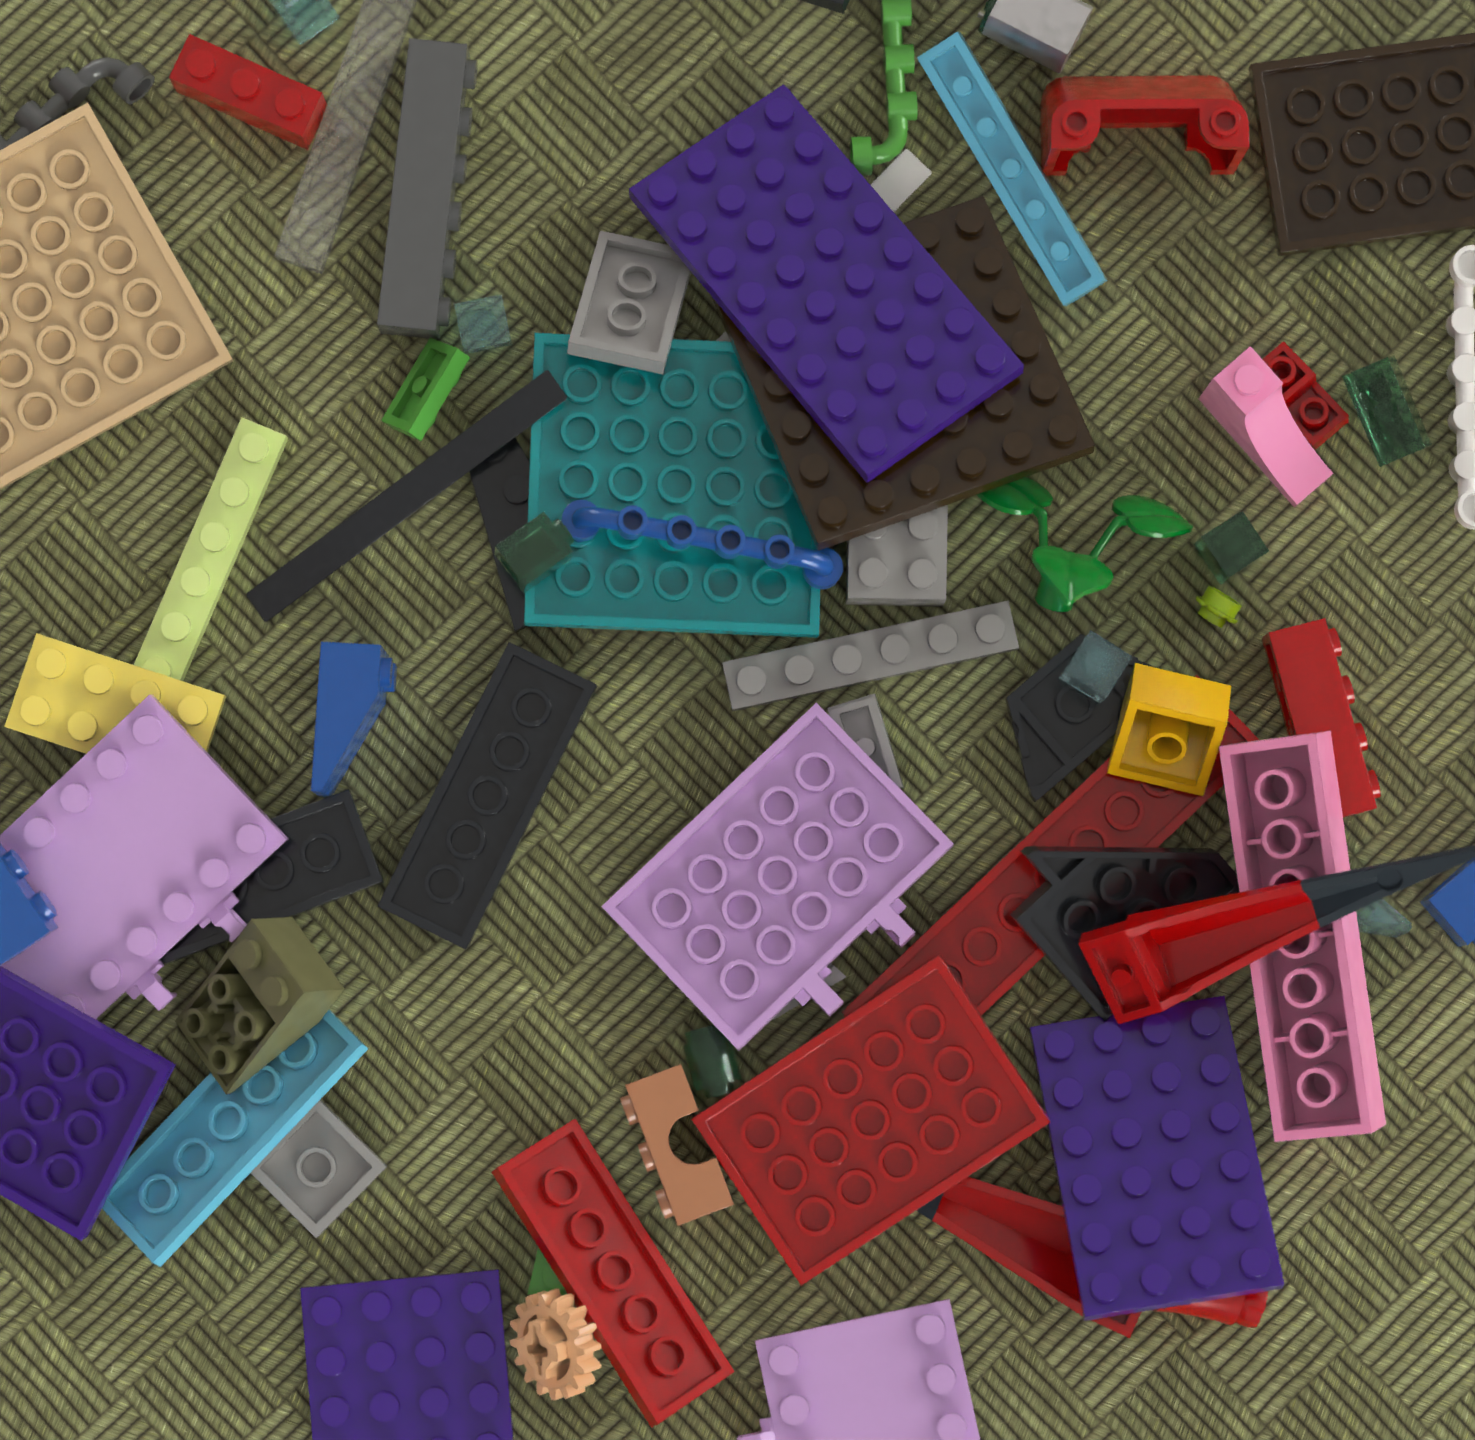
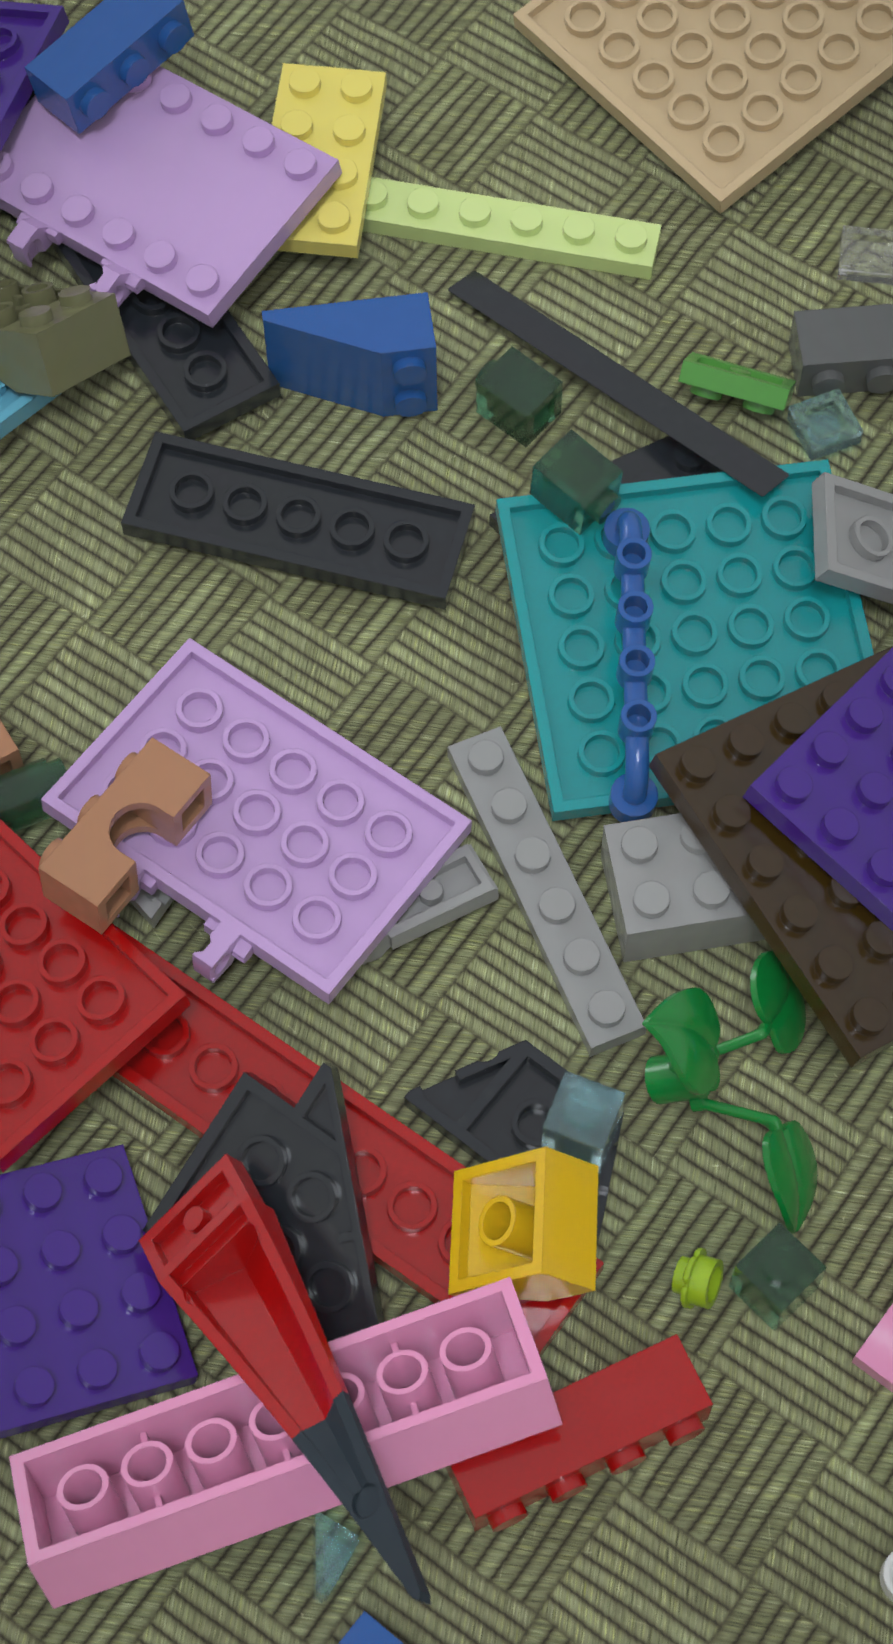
camera: 85 degrees right, 20 degrees down
(401, 583) = (518, 395): none -> clear green brick
(822, 1017) = (151, 794): none -> nougat arch

